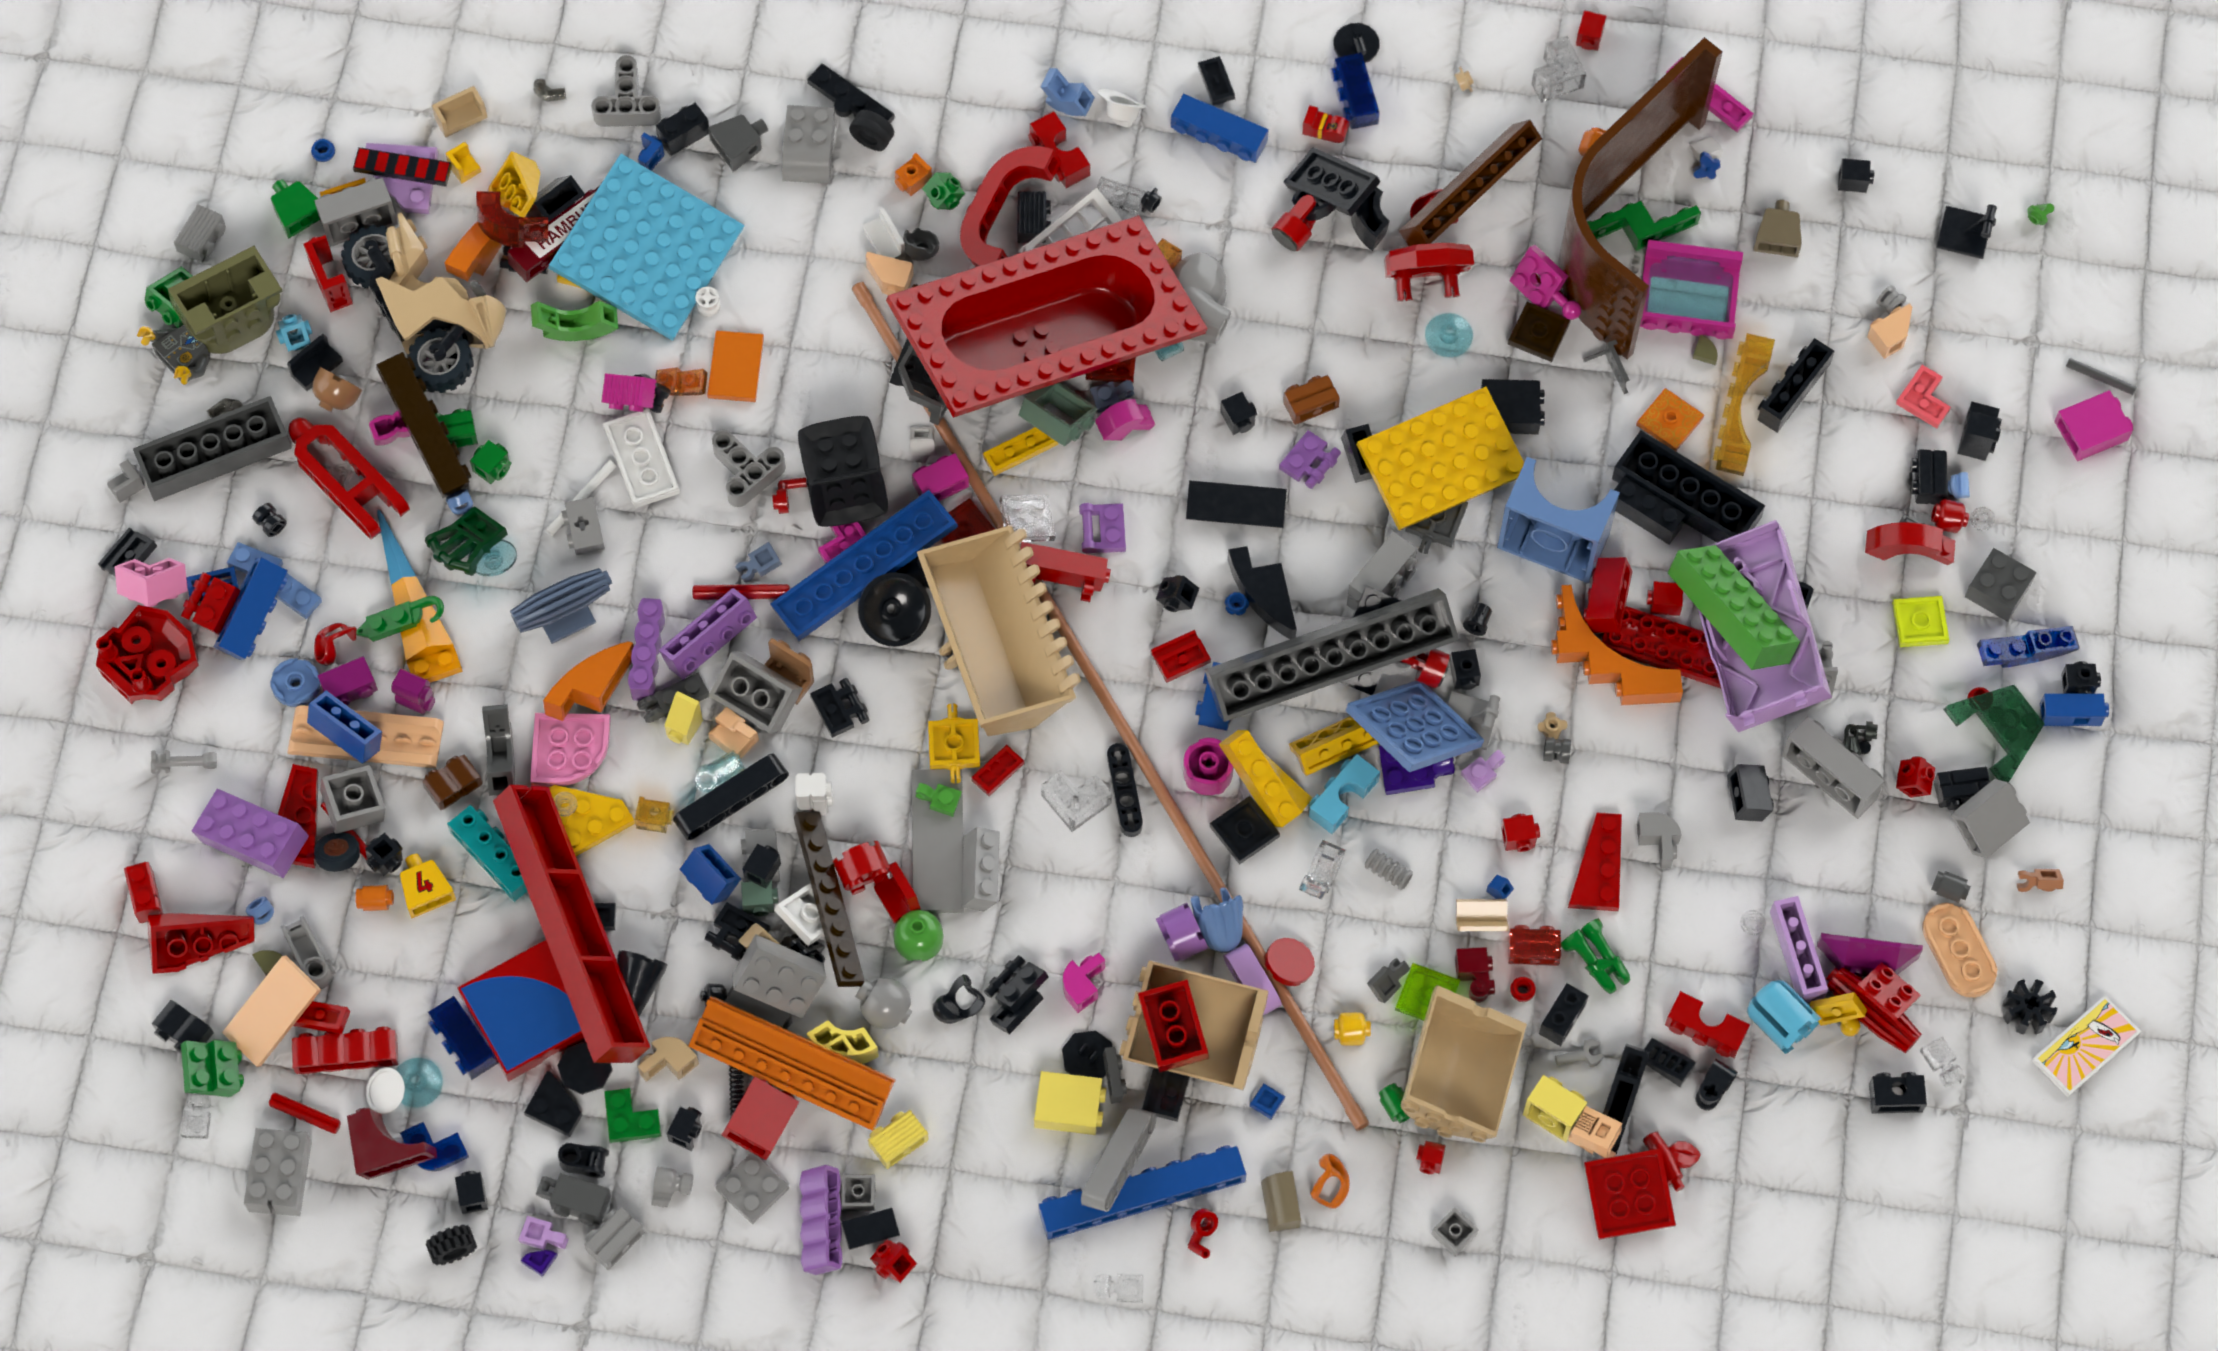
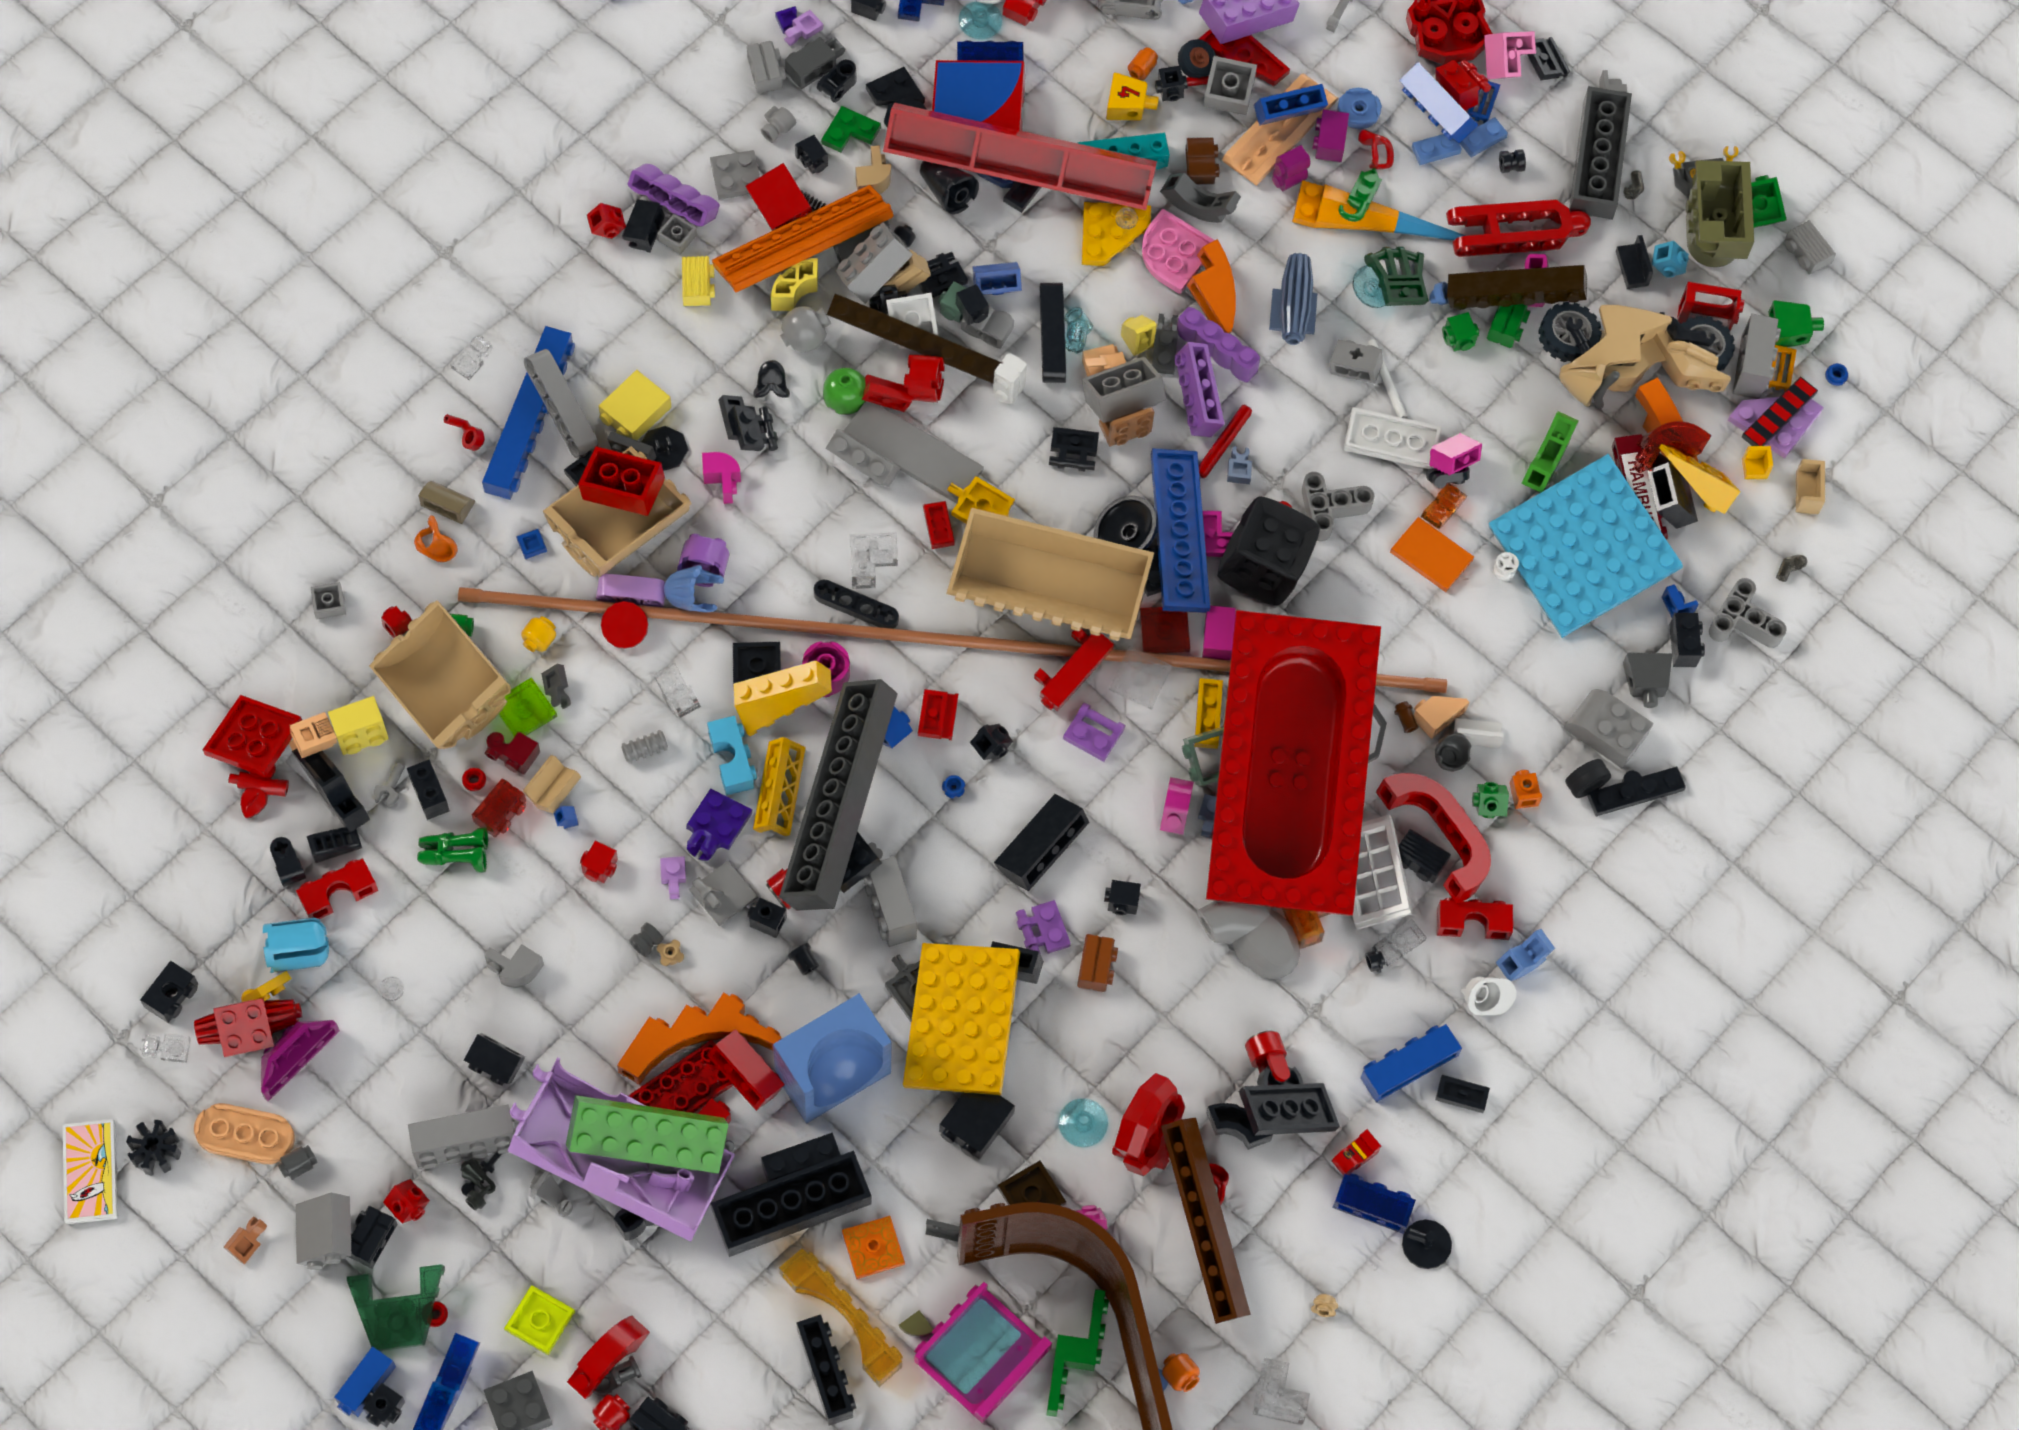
camera: 120 degrees right, 0 degrees up
(334, 391) = (1600, 258): medium nougat cylinder -> none
(649, 822) = (1076, 273): clear yellow brick -> none
(942, 799) = (942, 469): bright green plate -> none
(1264, 590) = (947, 811): black slope -> none
(1414, 725) = (739, 829): medium blue plate -> none
(1599, 873) = (524, 905): red wing -> none
(1798, 949) = (337, 998): lavender brick -> none

